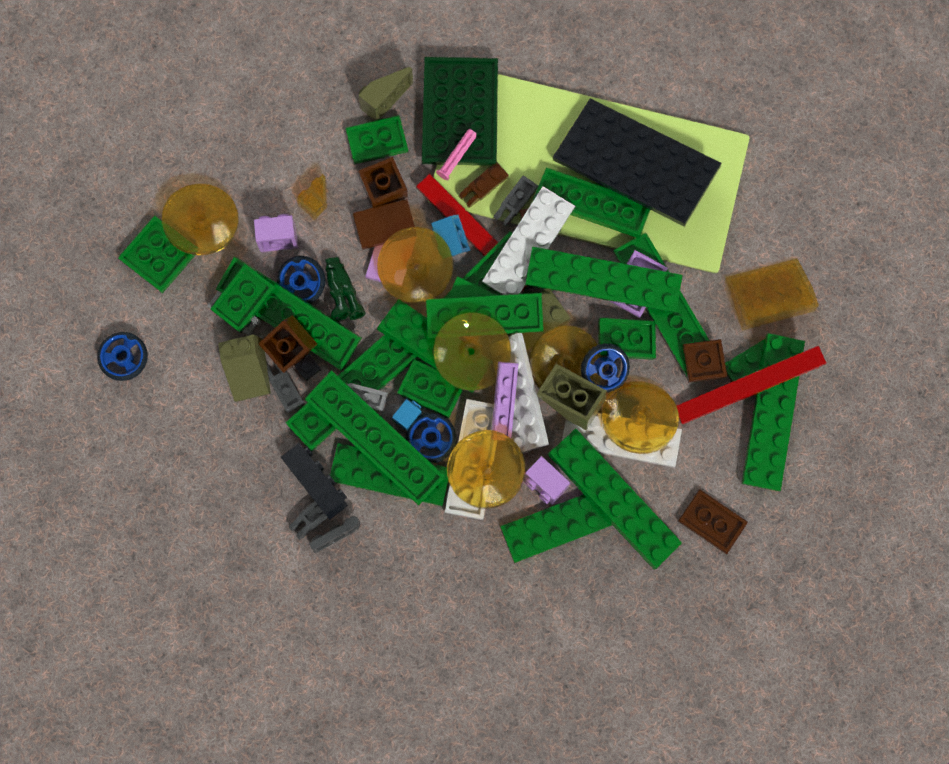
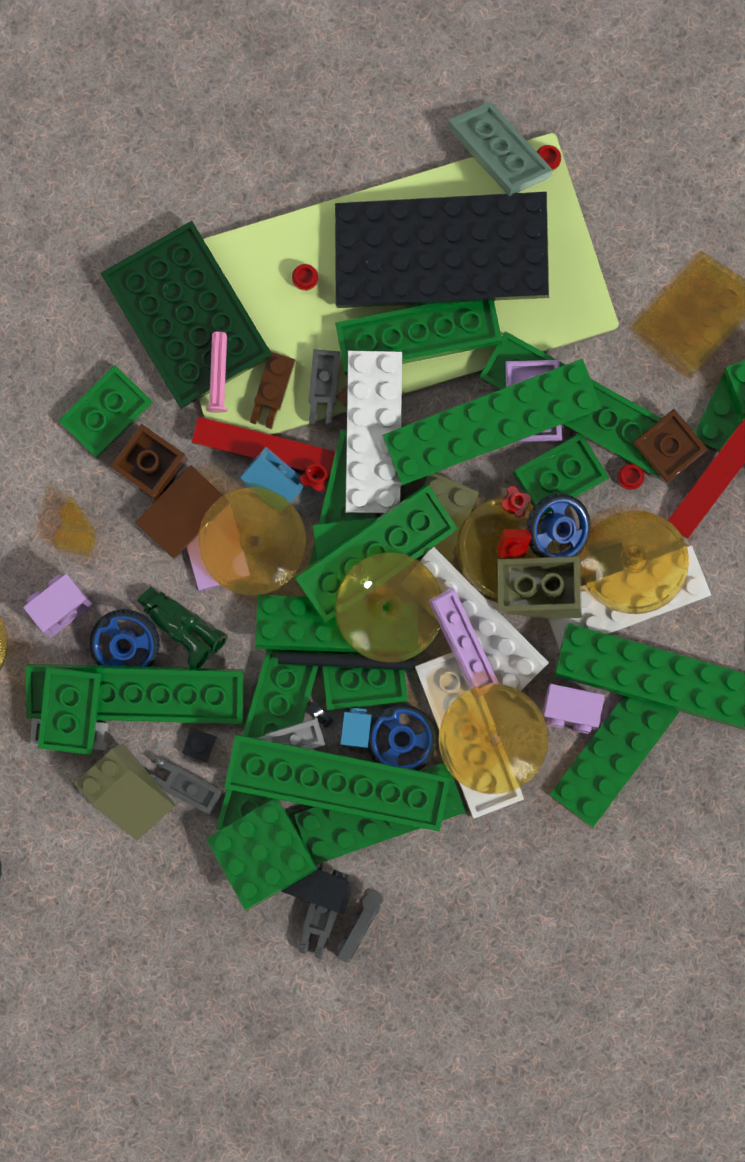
camera: 25 degrees left, 5 degrees up
(287, 343) = (159, 733): reddish brown brick -> none
(302, 452) = (261, 854): none -> green plate
(384, 92) = (78, 350): olive slope -> none
(391, 394) = (318, 713): none -> black tile
(424, 368) = (340, 660): none -> black piece
(477, 250) = (317, 471): none -> red plate
(544, 131) = (305, 277): none -> red plate
(572, 359) = (514, 543): none -> red plate
(583, 335) = (509, 505): none -> red plate
(669, 366) = (630, 476): none -> red plate
(709, 124) = (499, 148): none -> sand green plate
(736, 147) = (550, 155): none -> red plate

